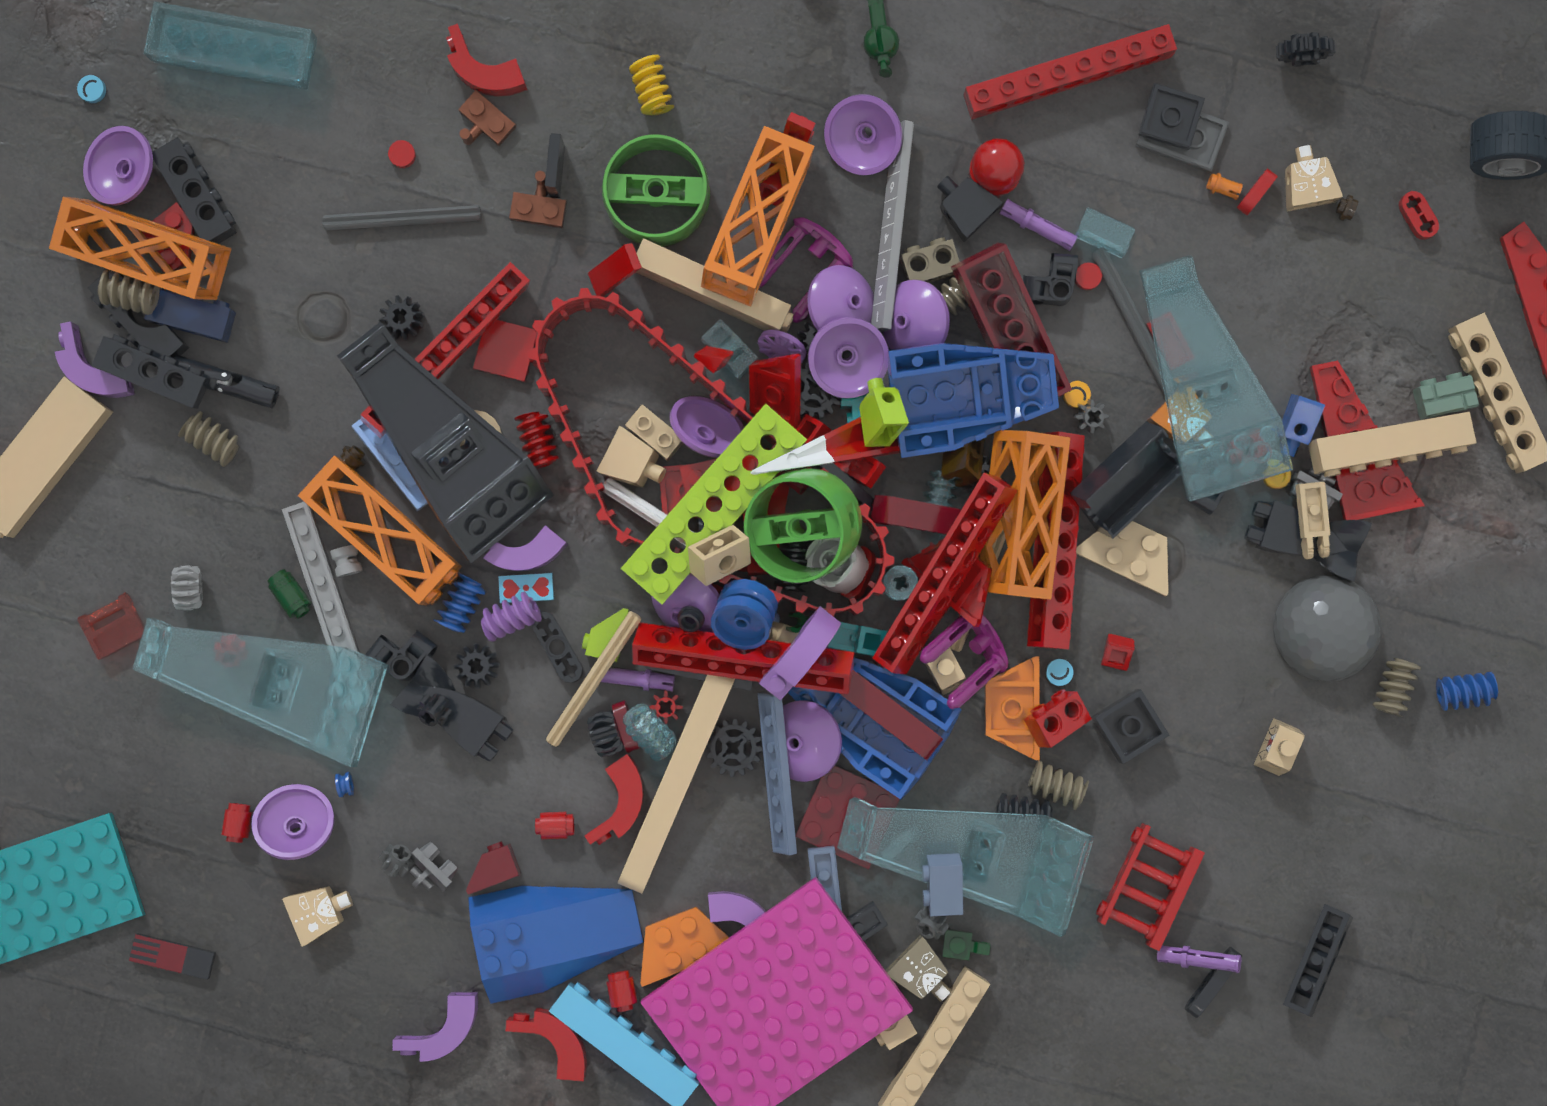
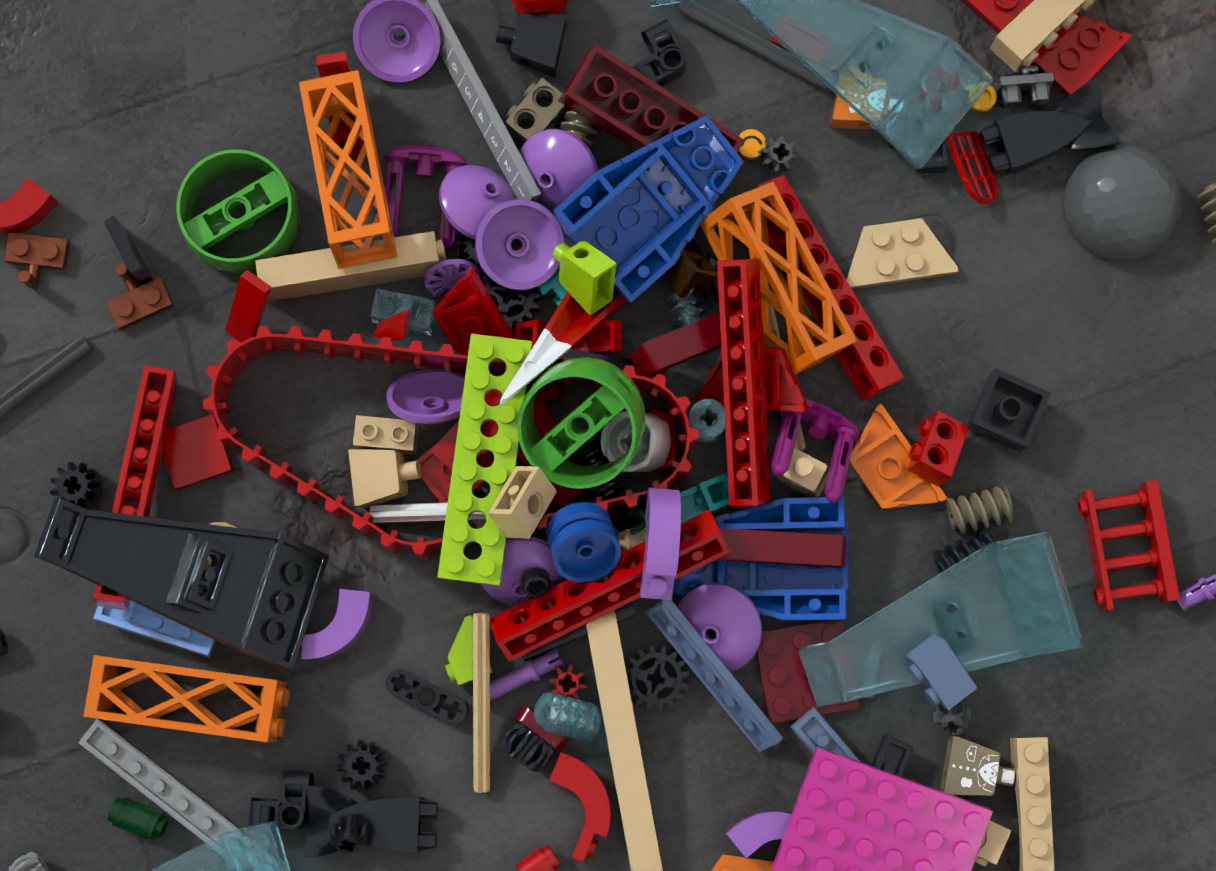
camera: 30 degrees left, 5 degrees down
(346, 561) = (172, 750): light grey wheel -> none
(353, 456) = (114, 647): dark brown plate -> none
(460, 604) = (307, 717): blue piece -> none
(510, 617) = (363, 697): medium lavender piece -> none
(536, 439) = (277, 514): red piece -> none
(537, 586) = (360, 661): medium azure tile -> none
(649, 86) = (169, 124): yellow piece -> none
(960, 944) = (992, 720): dark green plate -> none
(1043, 227) = (611, 16): medium lavender pin -> none
(1059, 672) = (909, 406): medium azure tile -> none
(1088, 276) = (689, 32): red tile -> none
(1118, 652) = (949, 352): red slope -> none
(1128, 480) = (851, 188): black brick -> none
(1231, 514) = (977, 196): none -> red window
(1279, 748) = (1157, 338): tan torso -> none
(1302, 412) = (968, 24): torso -> none
(1313, 518) = (1042, 110): tan hinge -> none

